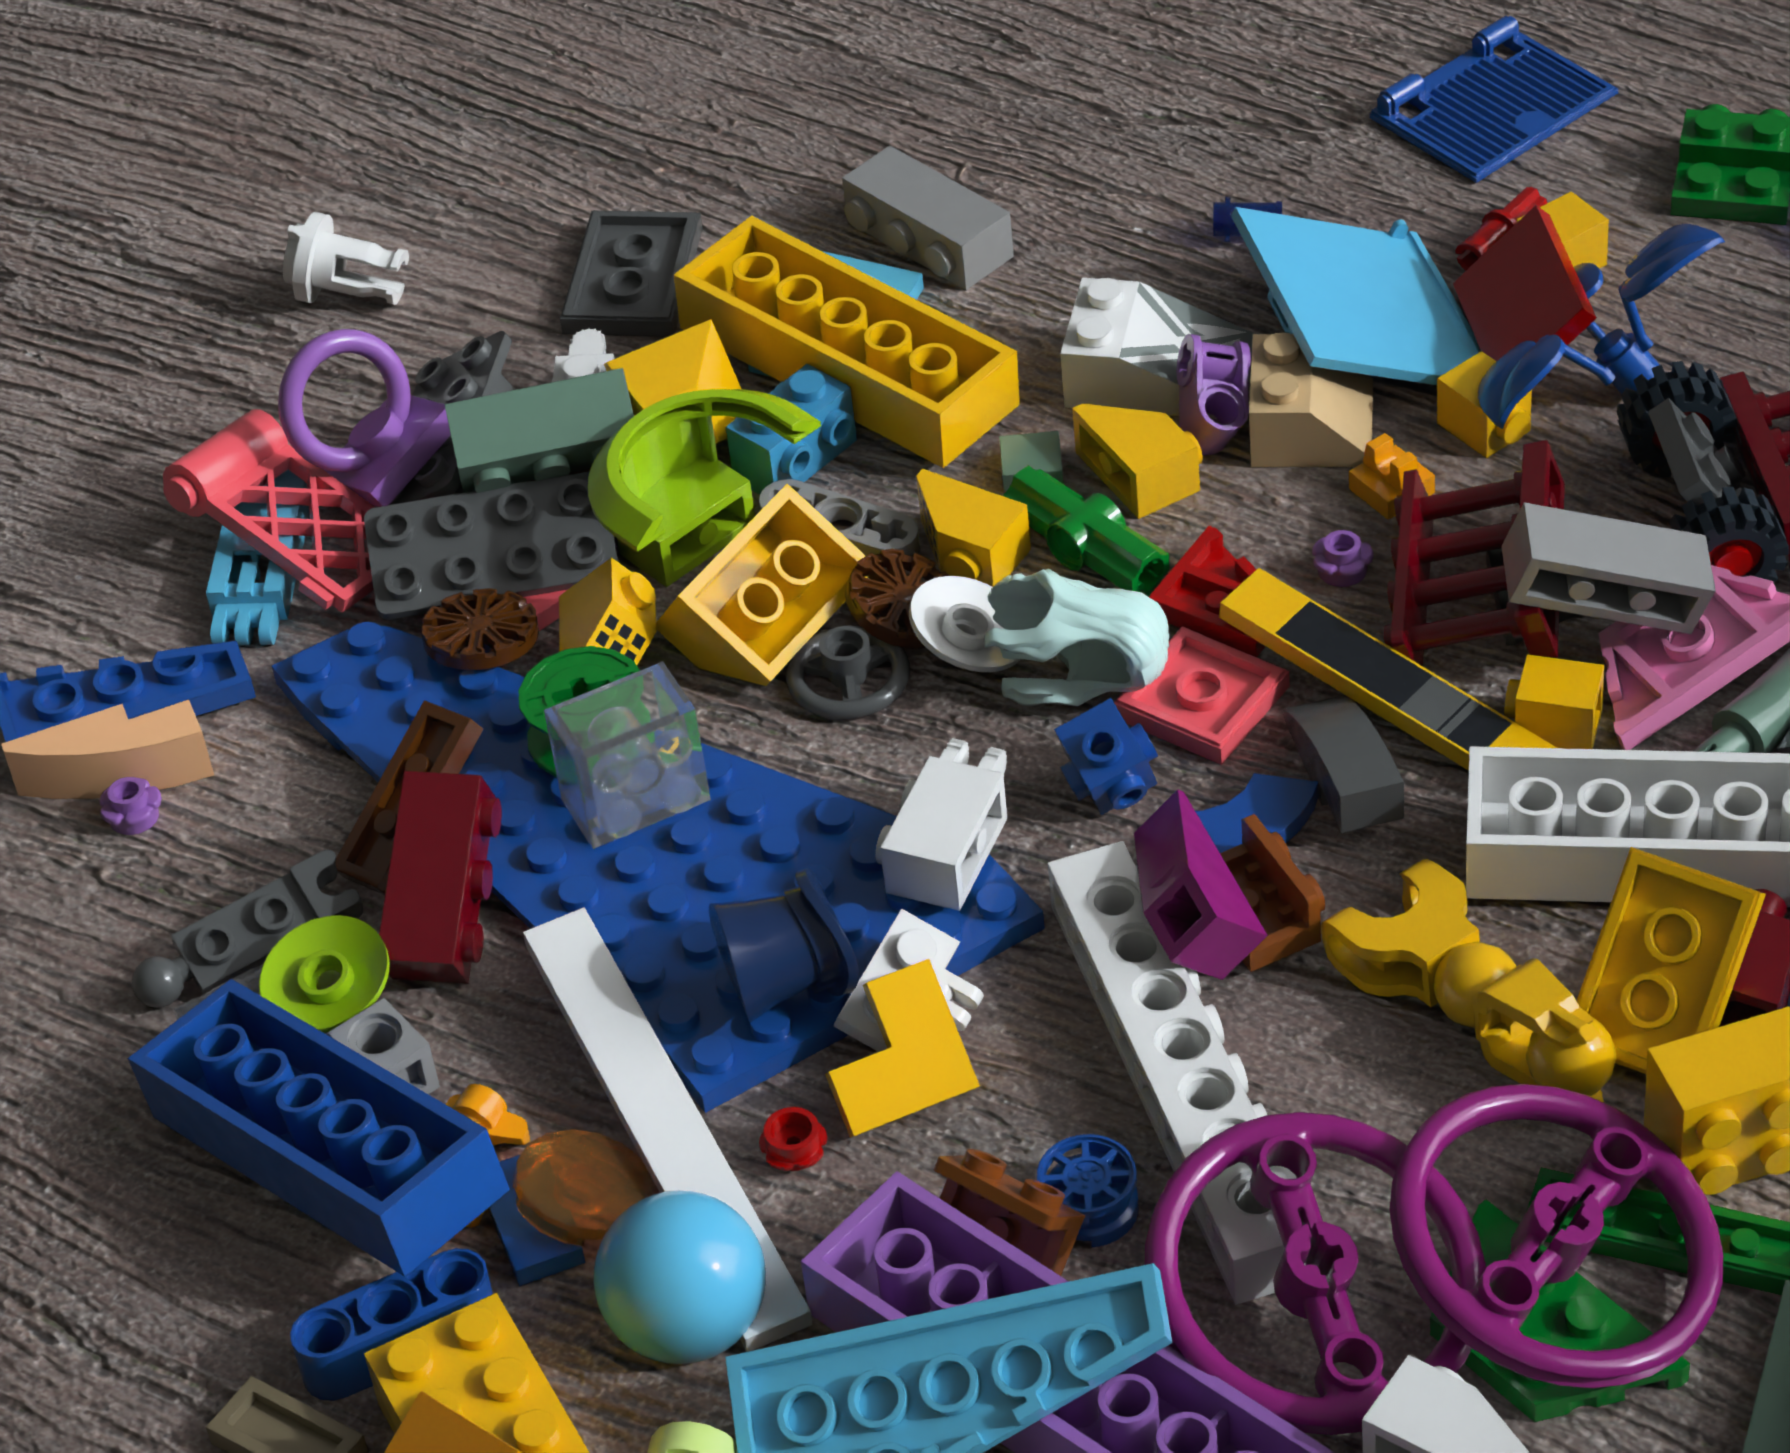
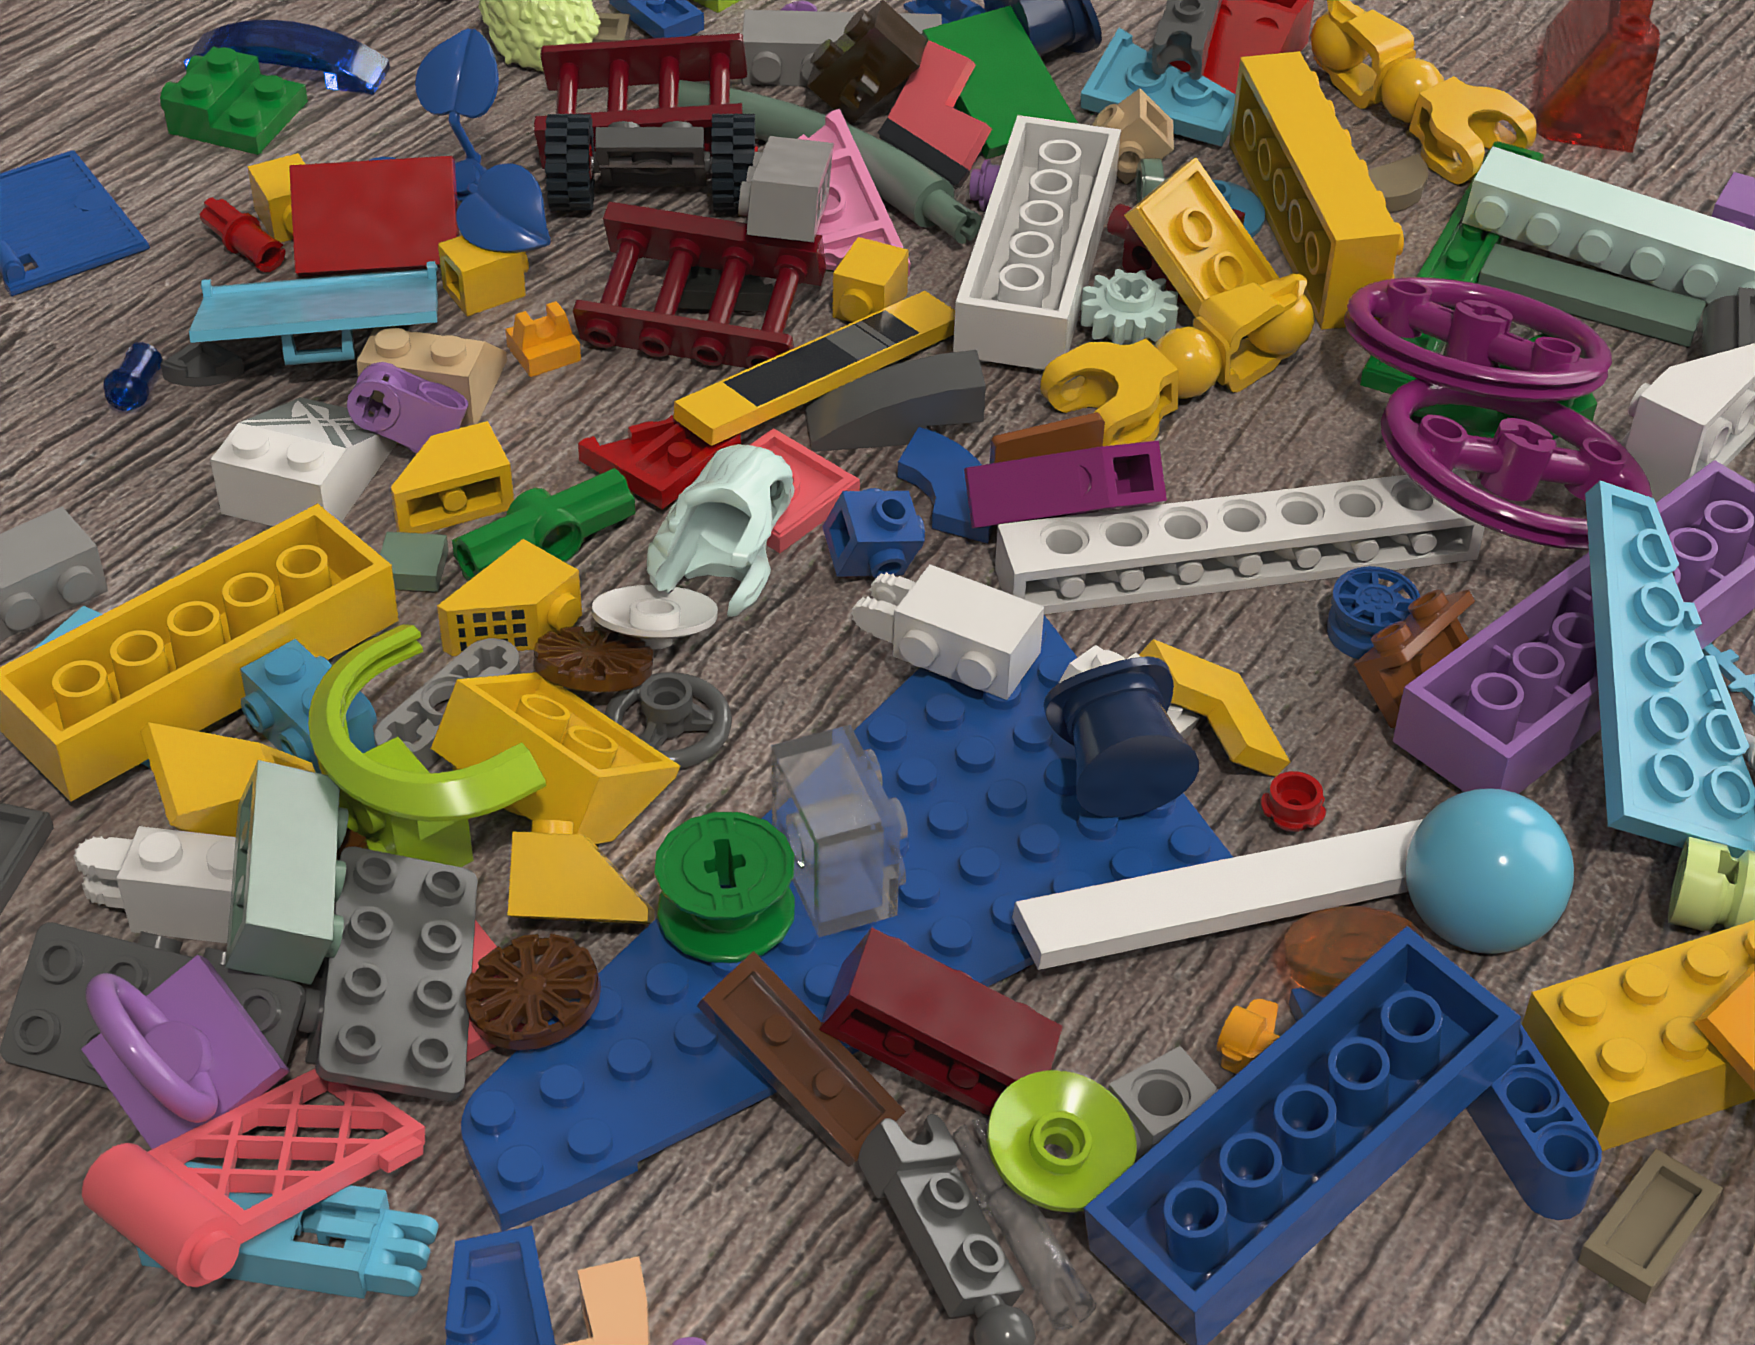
camera: 90 degrees left, 0 degrees up
(1342, 558) = (634, 383): medium lavender plate -> none
(1566, 928) = (1128, 308): none -> light aqua gear

